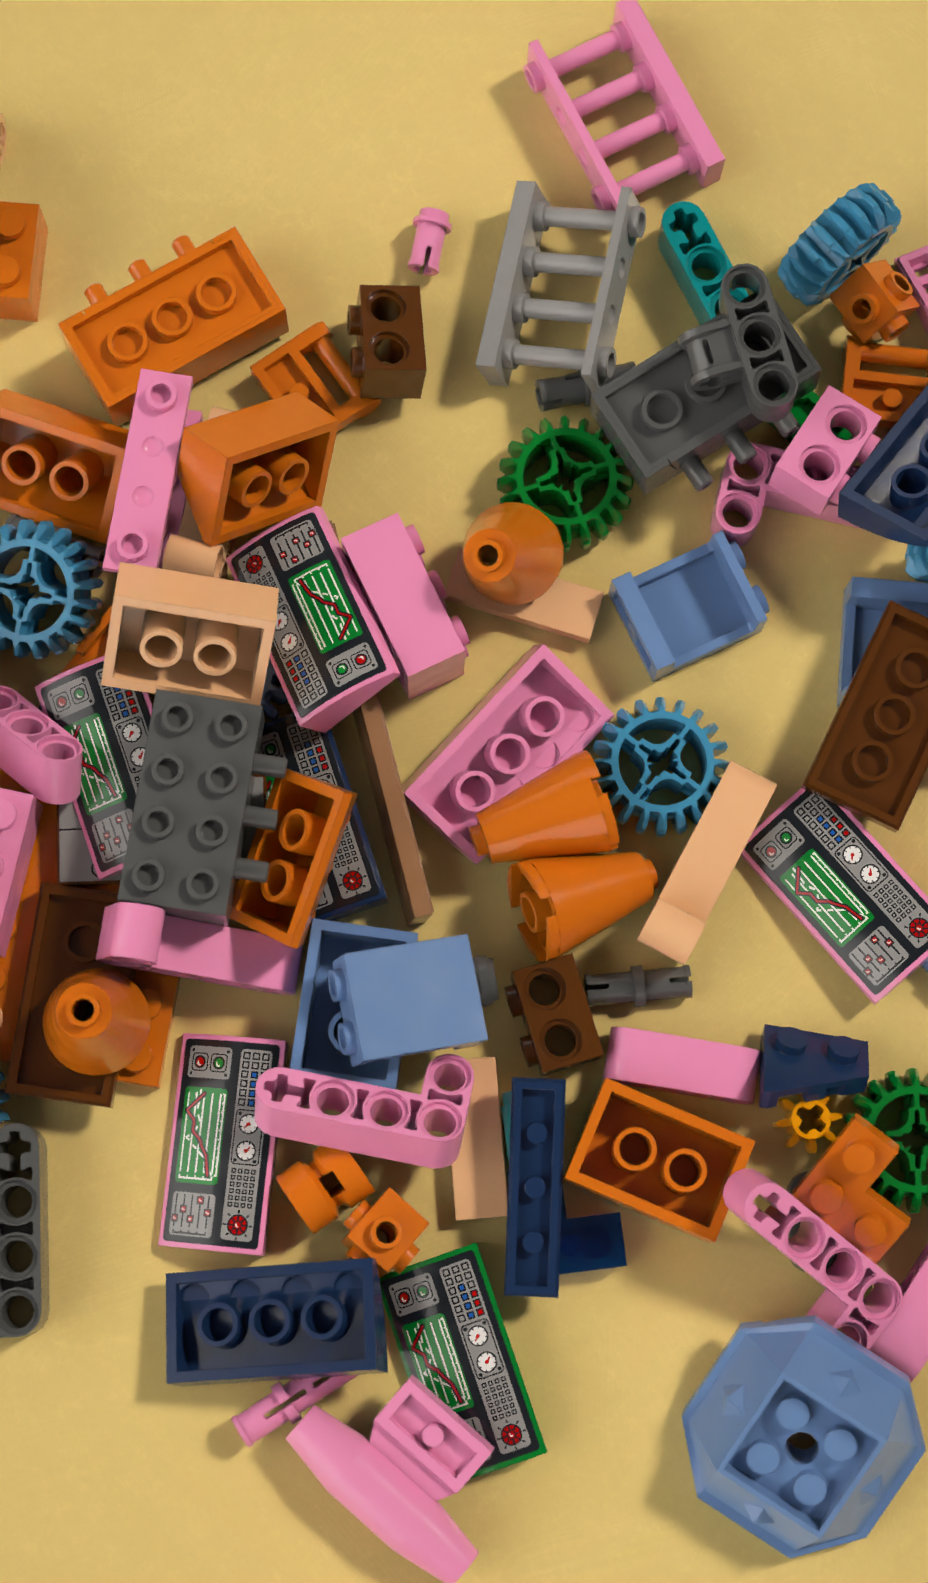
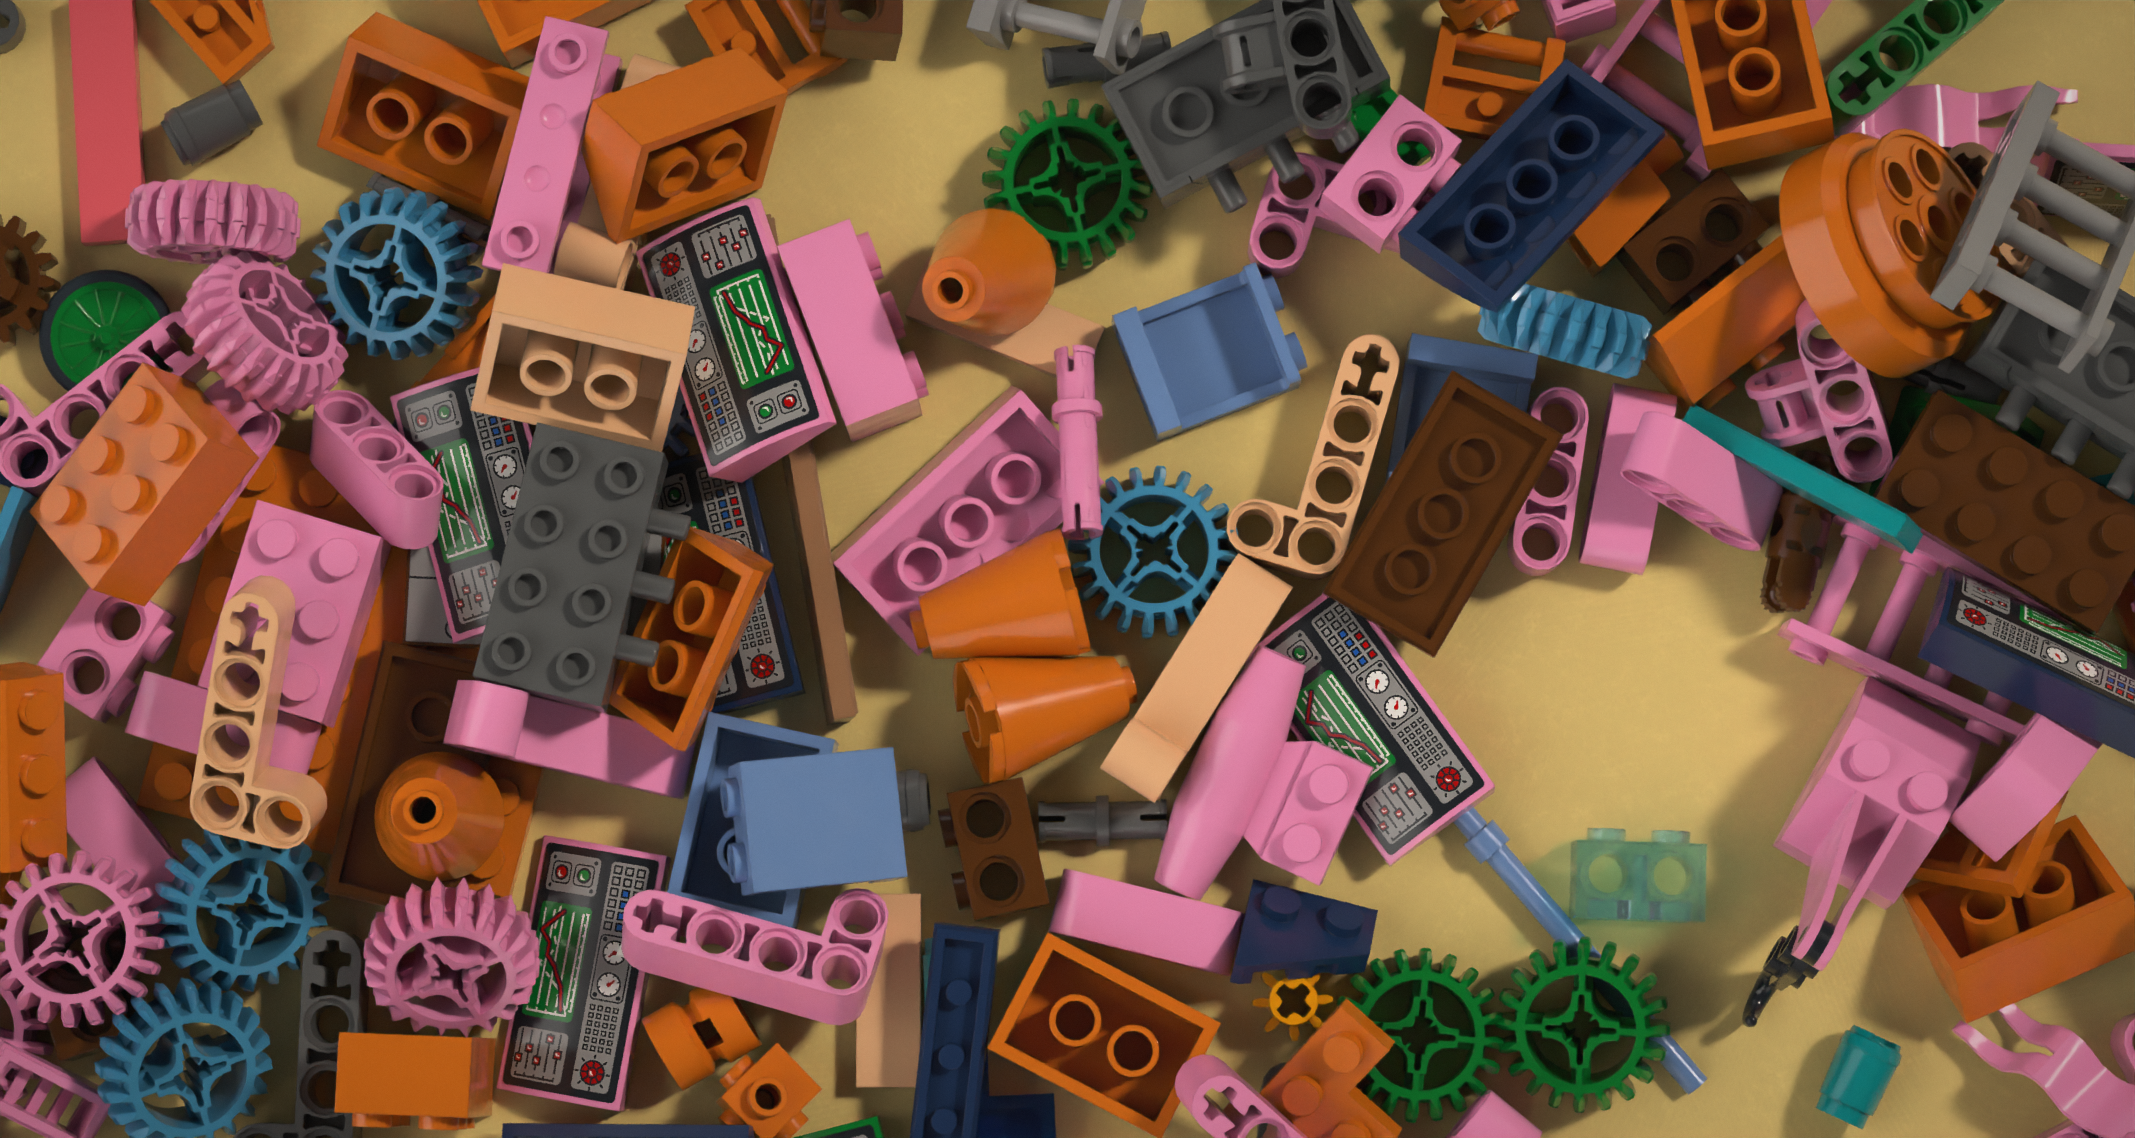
camera: 10 degrees right, 5 degrees up
(83, 1237) = (403, 1076): none -> orange brick
(120, 1122) = (455, 942): none -> bright pink gear
(591, 662) = (1077, 418): none -> bright pink pin
(757, 944) = (1253, 784): none -> bright pink plate
(793, 679) = (1329, 455): none -> light nougat beam

